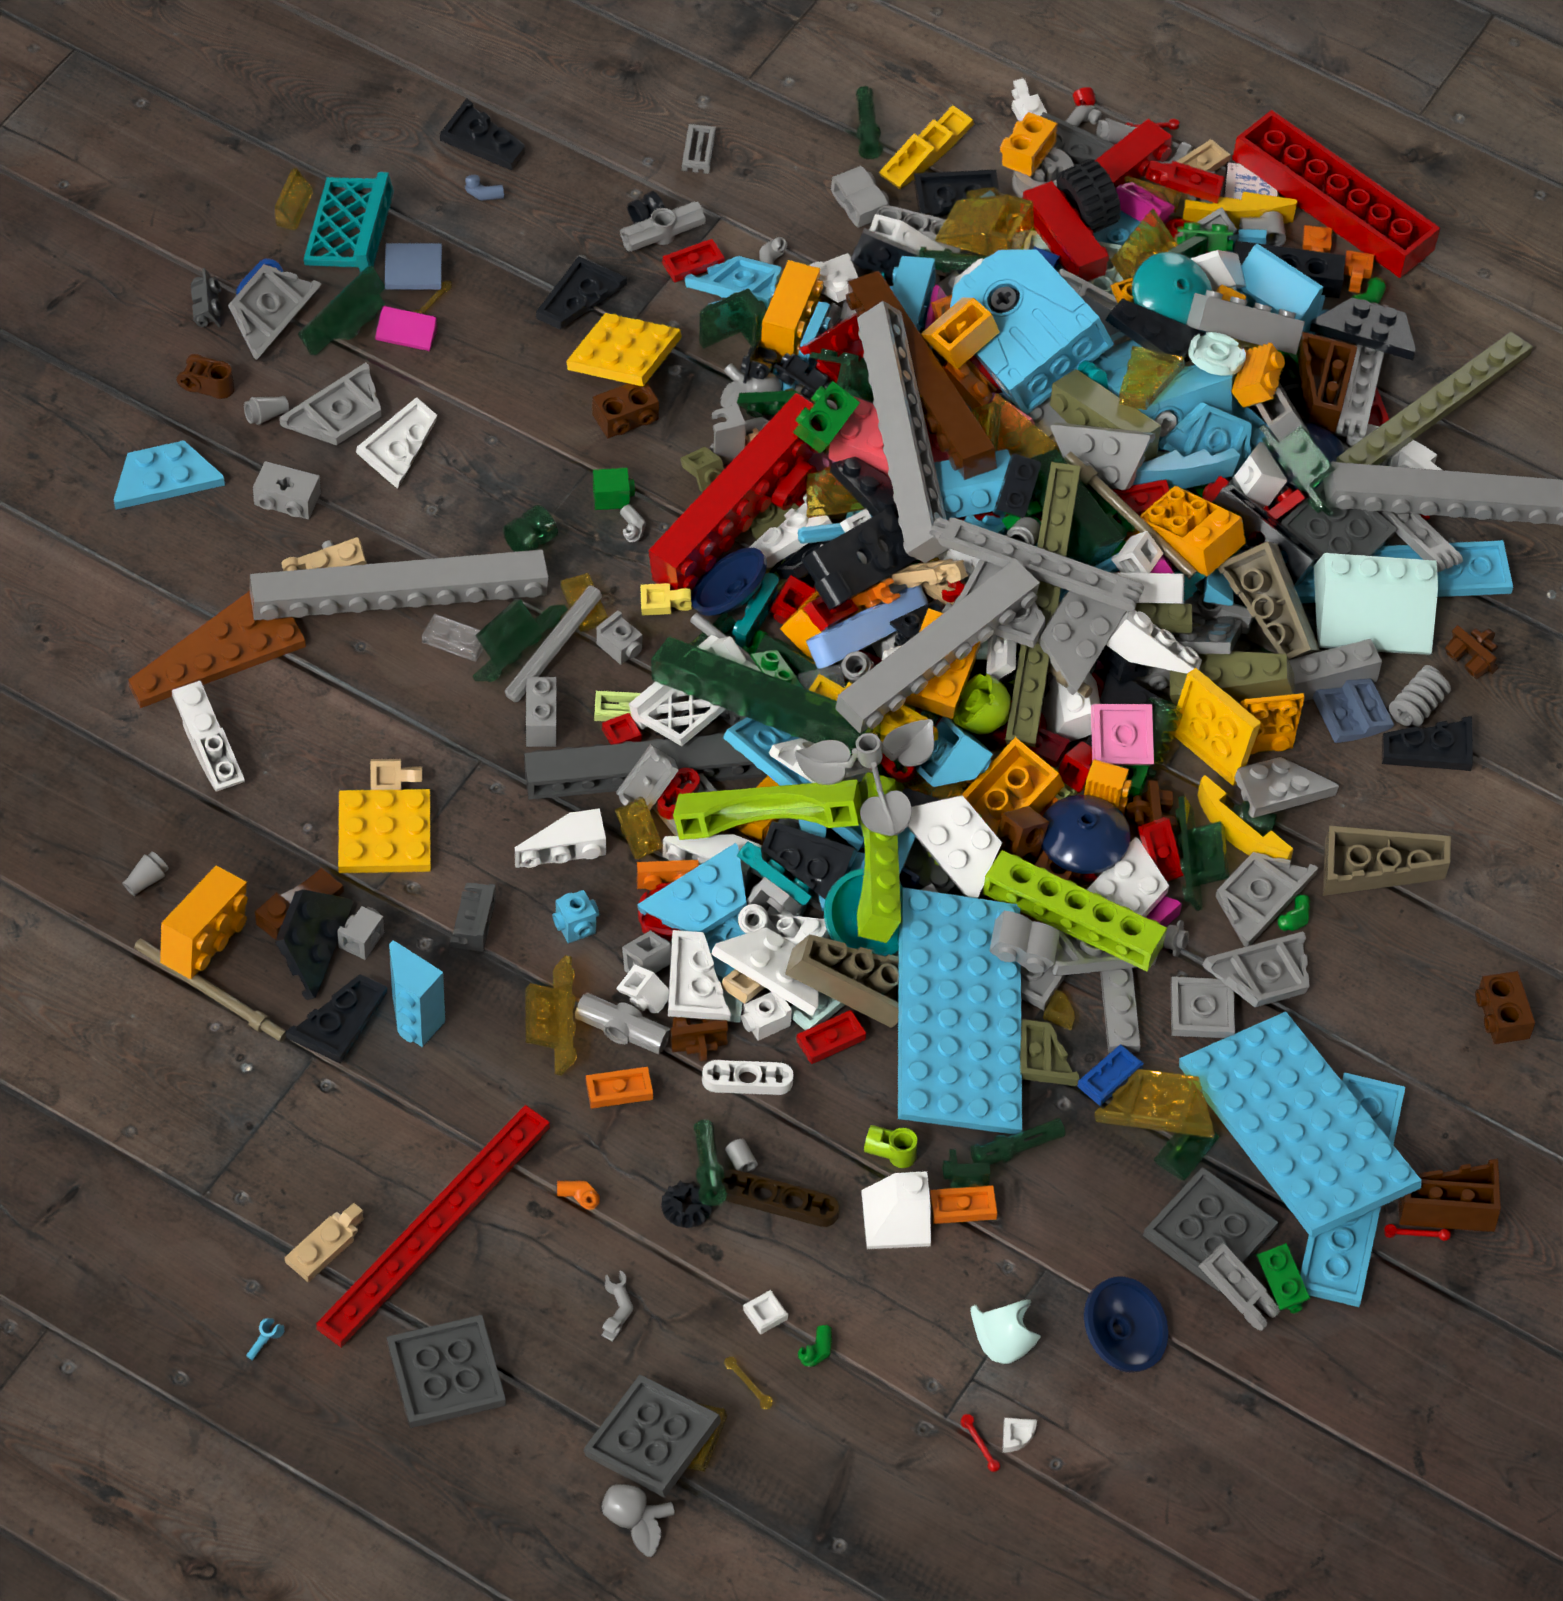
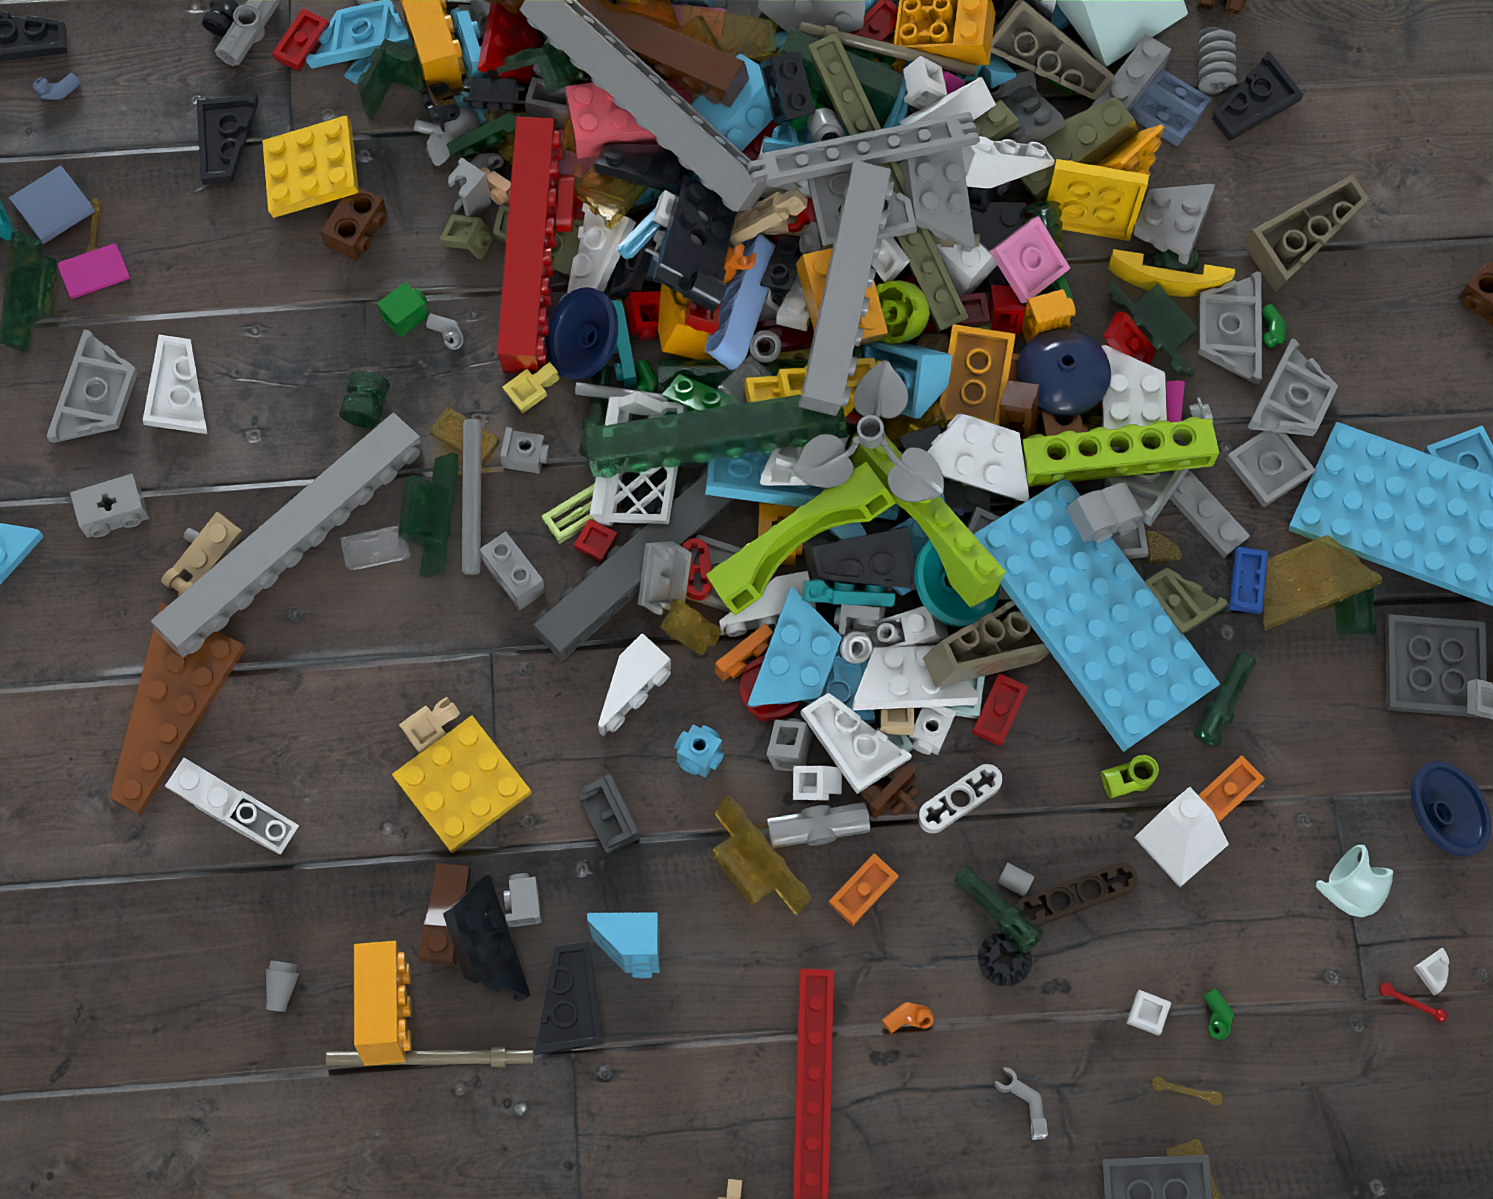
camera: 35 degrees left, 15 degrees up
(264, 408) = (23, 437): light grey cone -> none
(828, 418) = (571, 125): green brick -> none
(965, 1174) = (1217, 761): clear green bracket -> none
(1149, 805) = (1090, 310): reddish brown hips -> none

